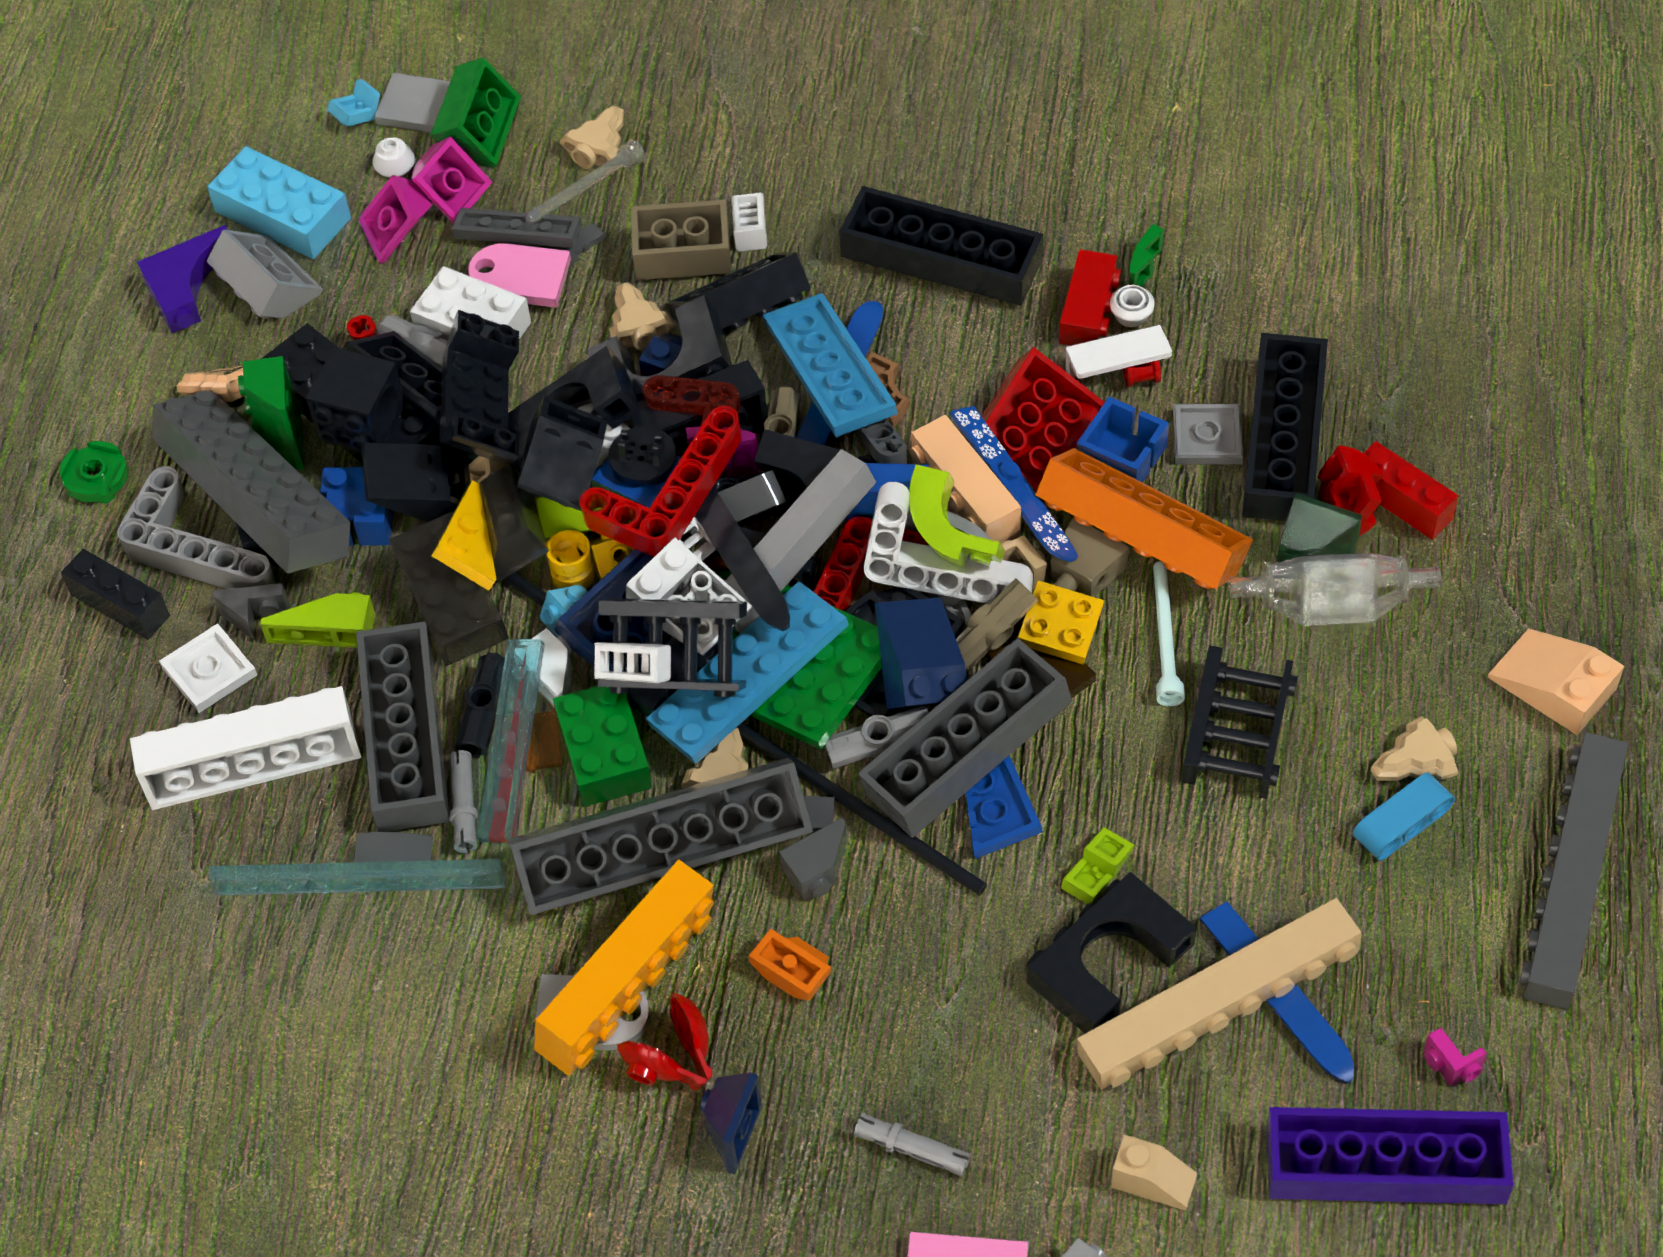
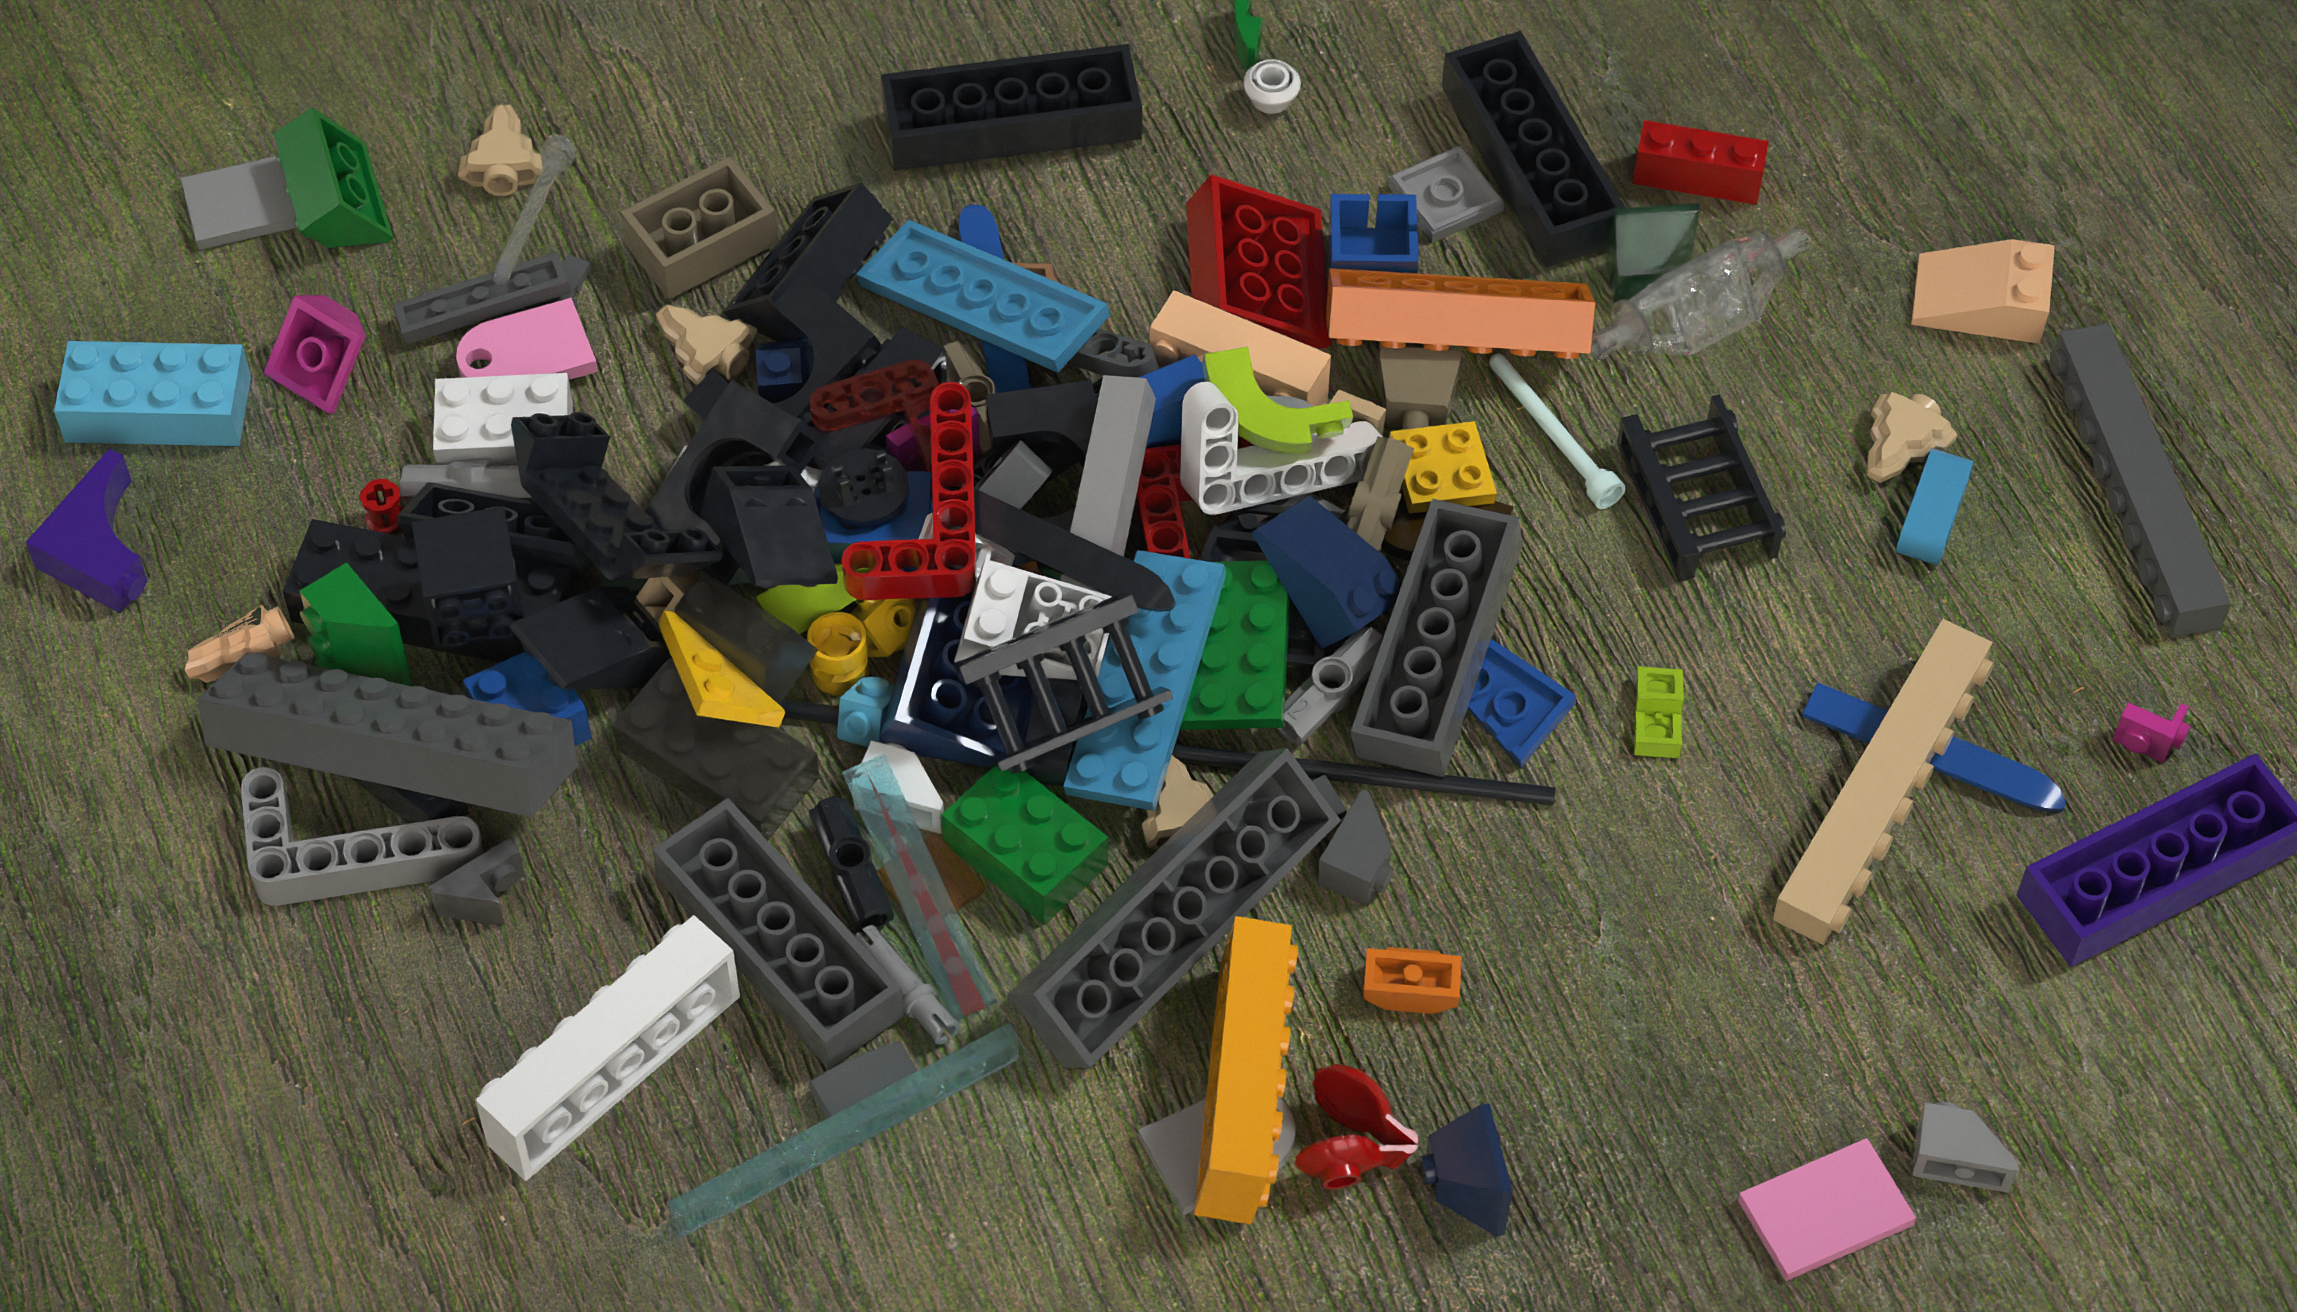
camera: 35 degrees left, 0 degrees up
(97, 487) = (155, 844): green plate -> none
(115, 594) = (296, 950): black brick -> none
(208, 668) = (478, 982): white plate -> none
(262, 274) = (194, 490): light grey slope -> none
(322, 622) = (592, 858): lime slope -> none
(356, 107) = (166, 236): medium azure bracket -> none
(393, 158) = (257, 281): white cone -> none
(450, 178) = (353, 272): dark pink slope -> none
(654, 662) = (1053, 732): white slope -> none
(749, 224) = (762, 170): white slope -> none
(906, 1142) = (1665, 1102): light grey pin -> none
(1009, 473) = (1287, 324): blue piece -> none
(1089, 298) = (1217, 99): red brick -> none
(1117, 352) = (1296, 144): white panel -> none
(1124, 910) = (1707, 841): black arch -> none
(1142, 373) = (1329, 153): red bush -> none
(1152, 1173) = (1940, 1001): tan slope -> none
(1350, 483) = (1649, 174): red brick -> none

